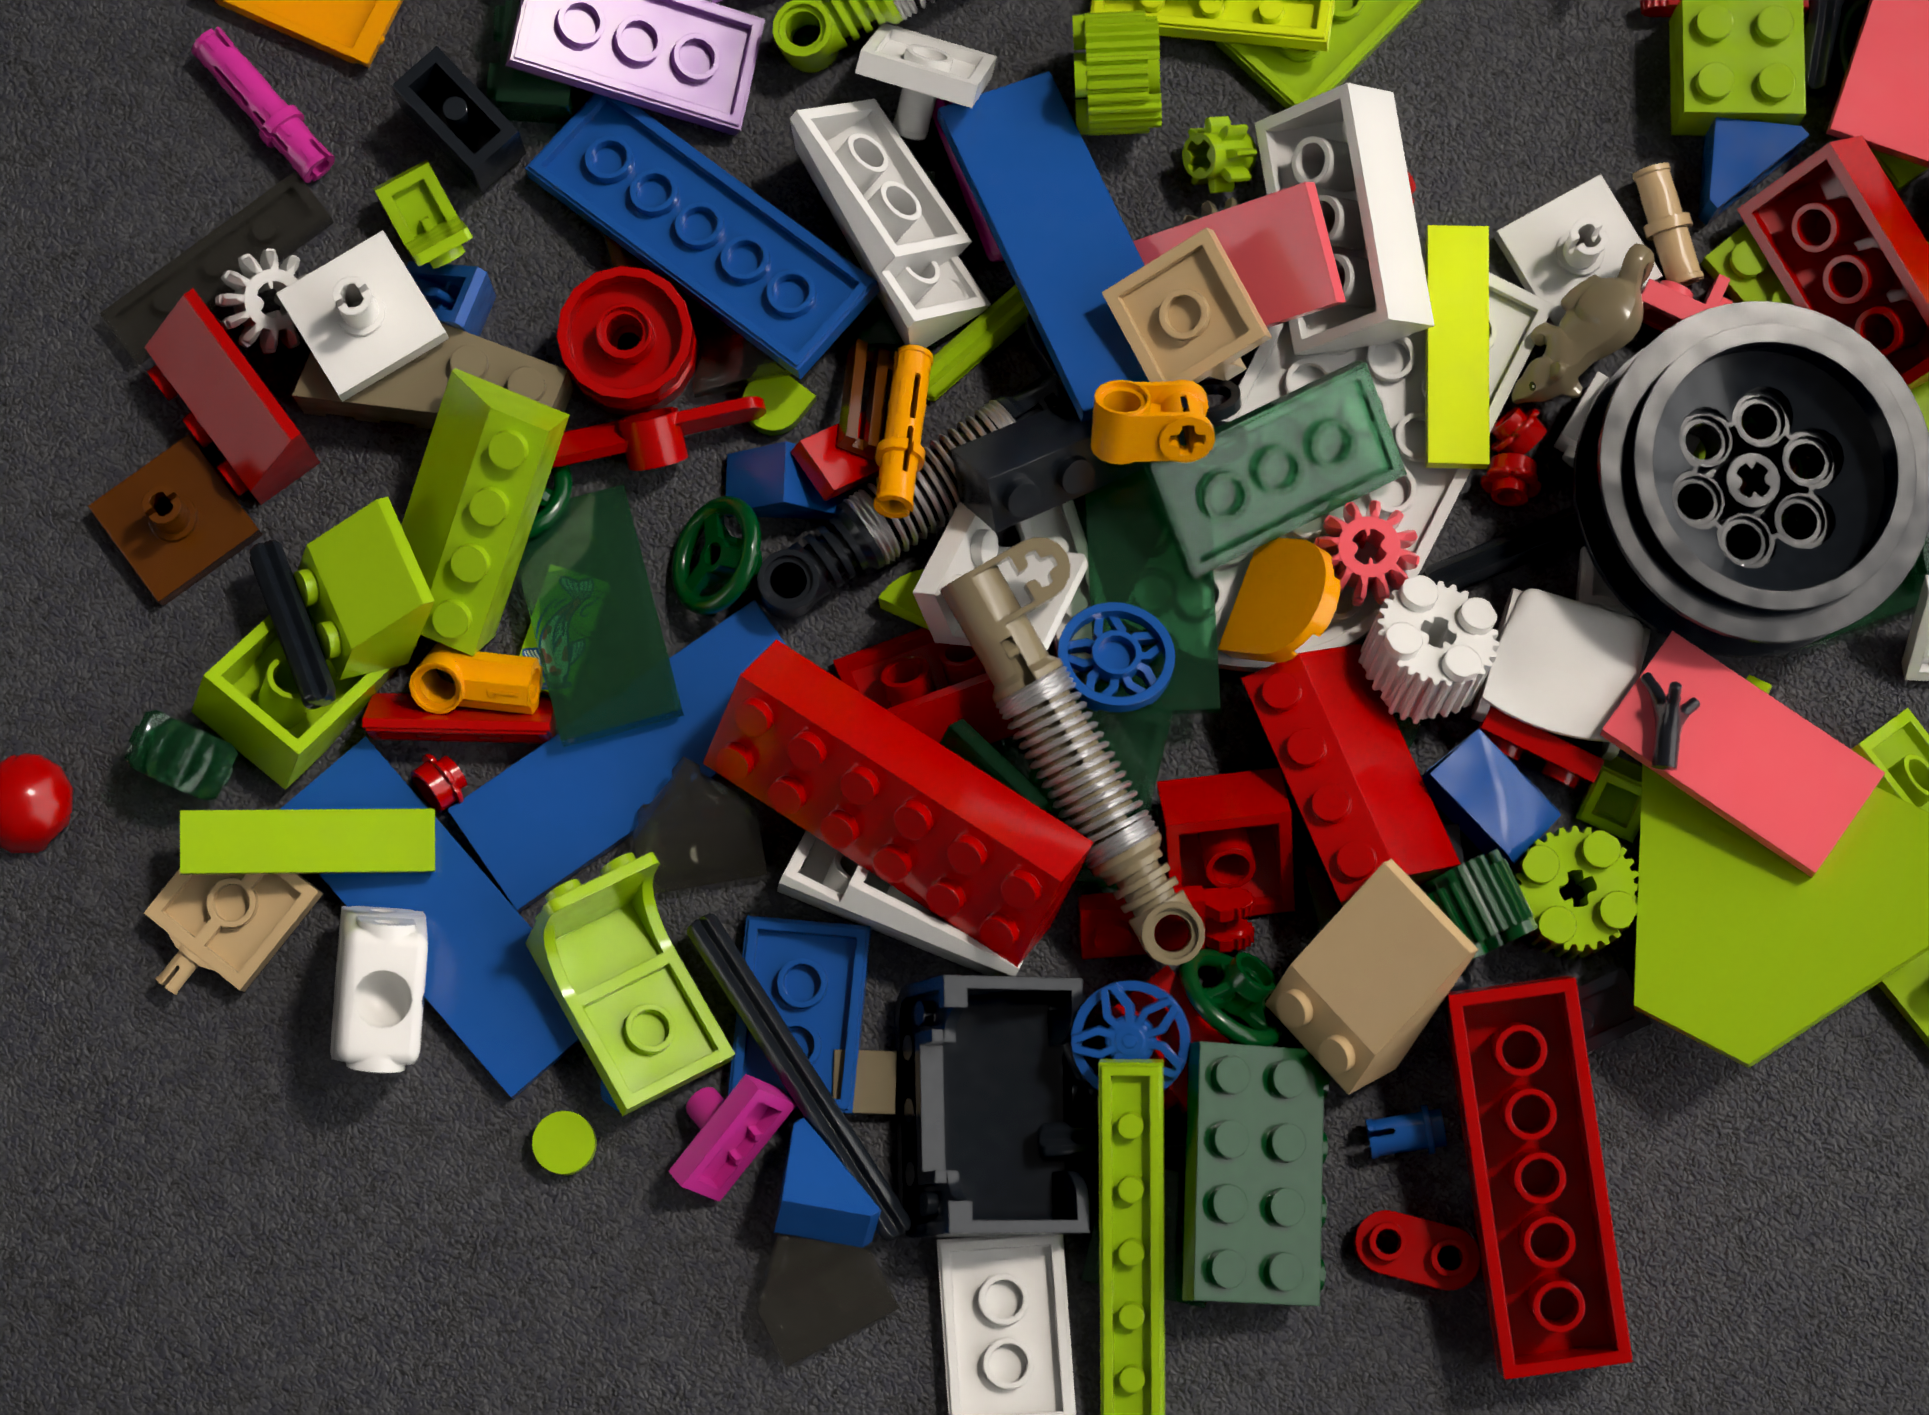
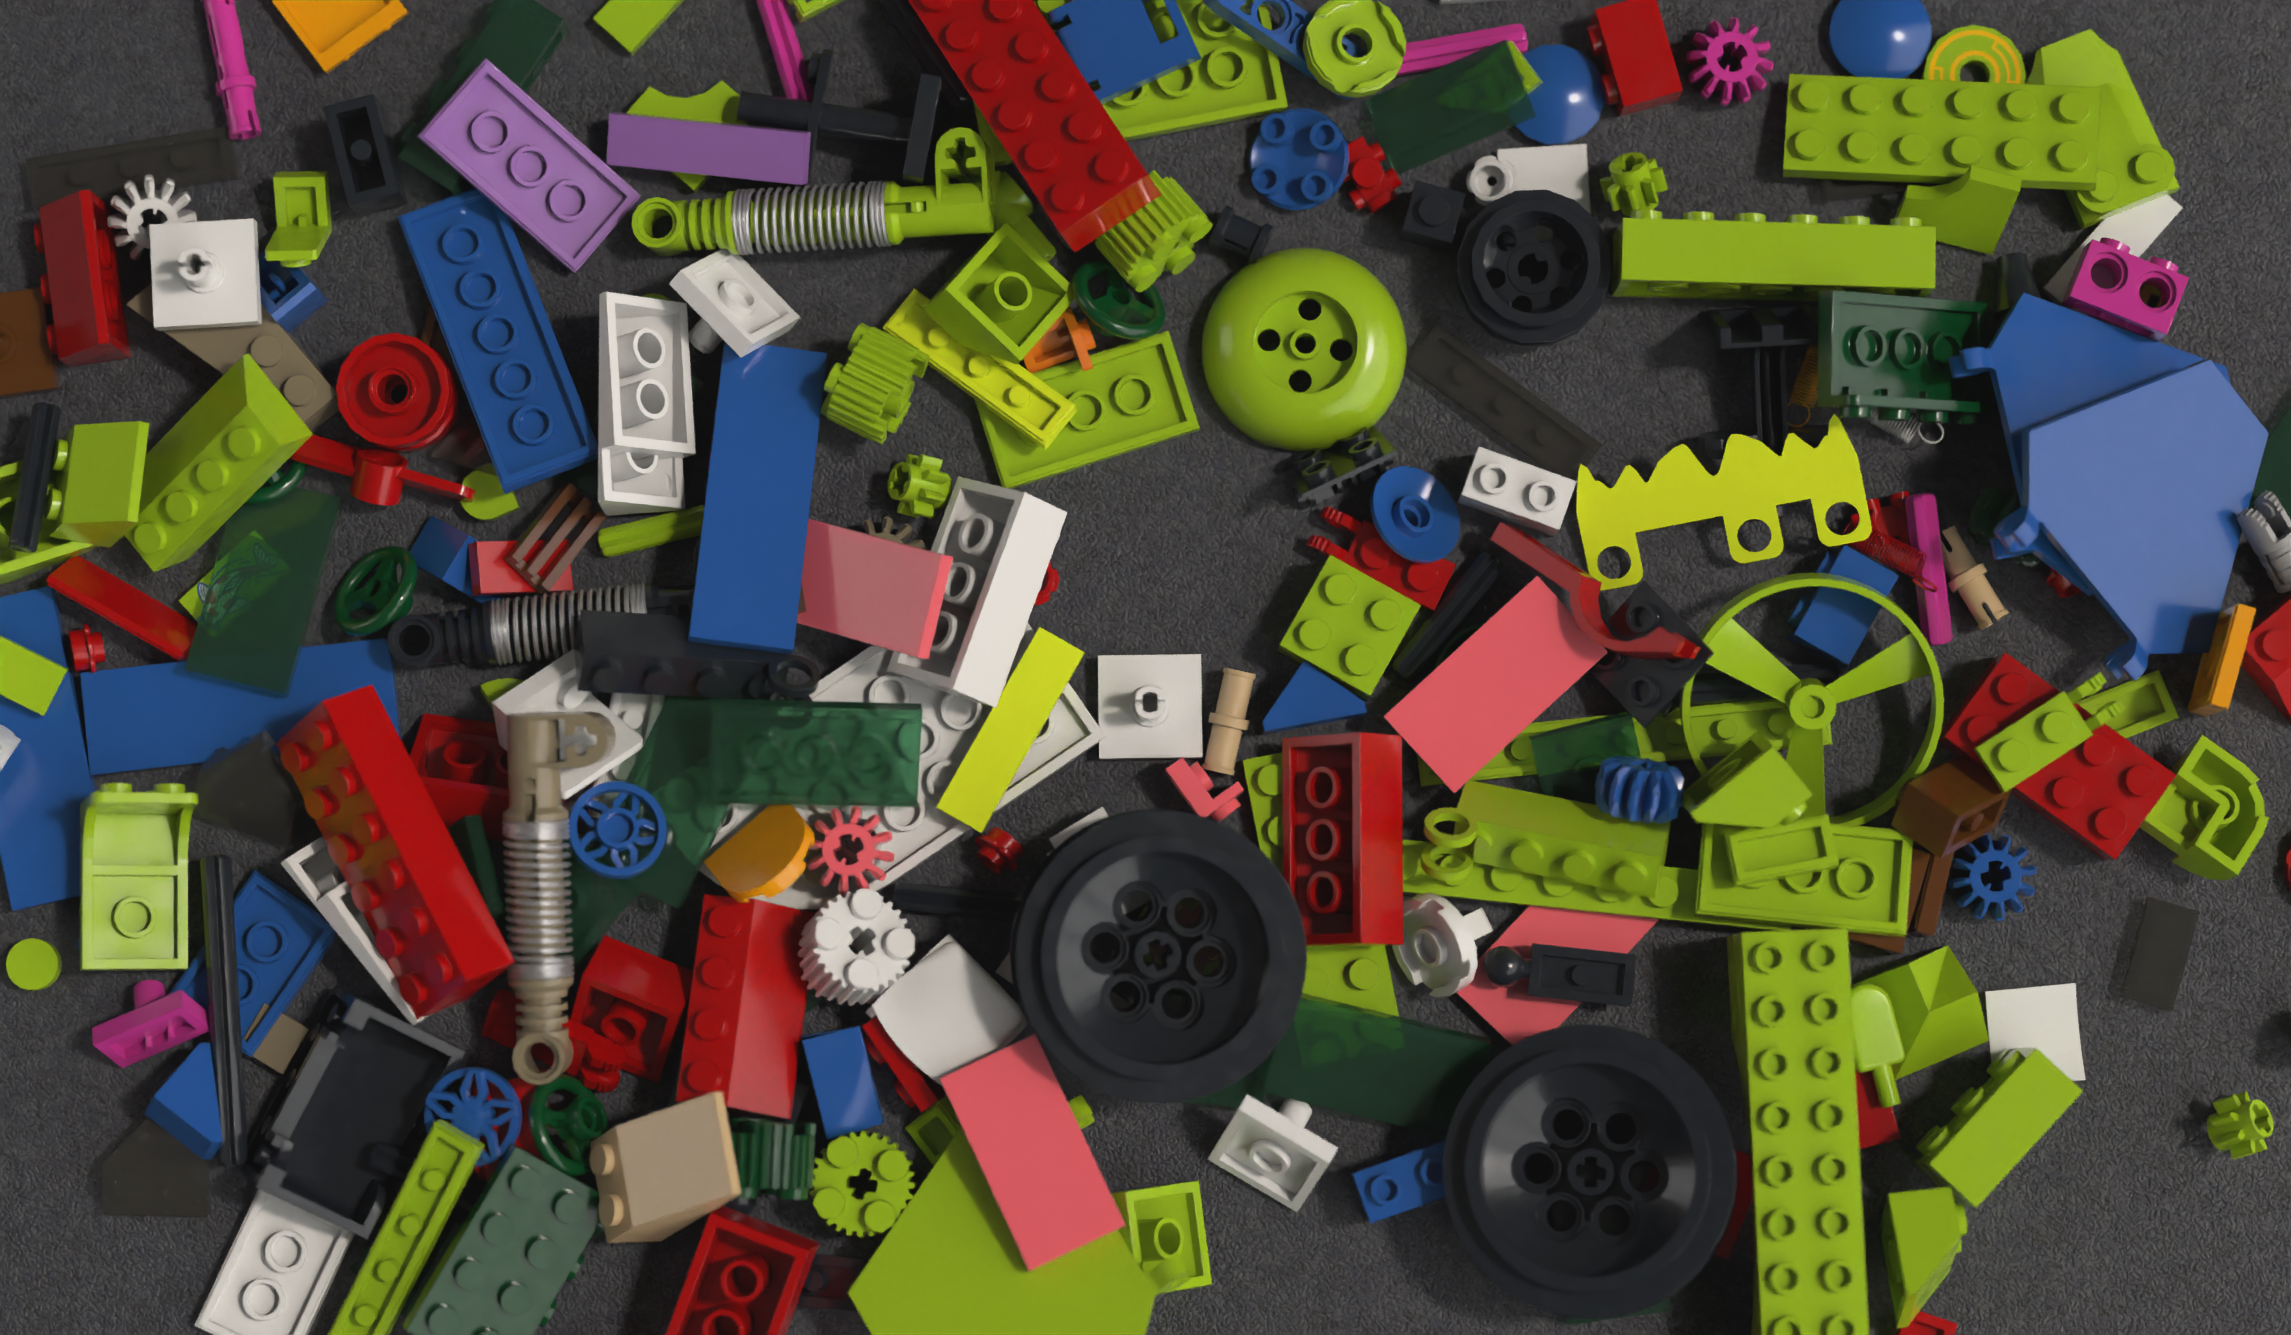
camera: 30 degrees right, 5 degrees up
(480, 681) = (153, 593): light orange piece -> none
(901, 450) = (545, 591): light orange pin -> none
(1145, 422) = (725, 672): light orange piece -> none
(1188, 313) = (801, 607): tan bracket -> none
(1406, 1132) = (646, 1291): blue pin -> none
(1517, 431) = (1023, 818): red plate -> none
(1597, 322) = (1120, 772): dark tan animal -> none
(1668, 721) = (987, 1100): black bar -> none

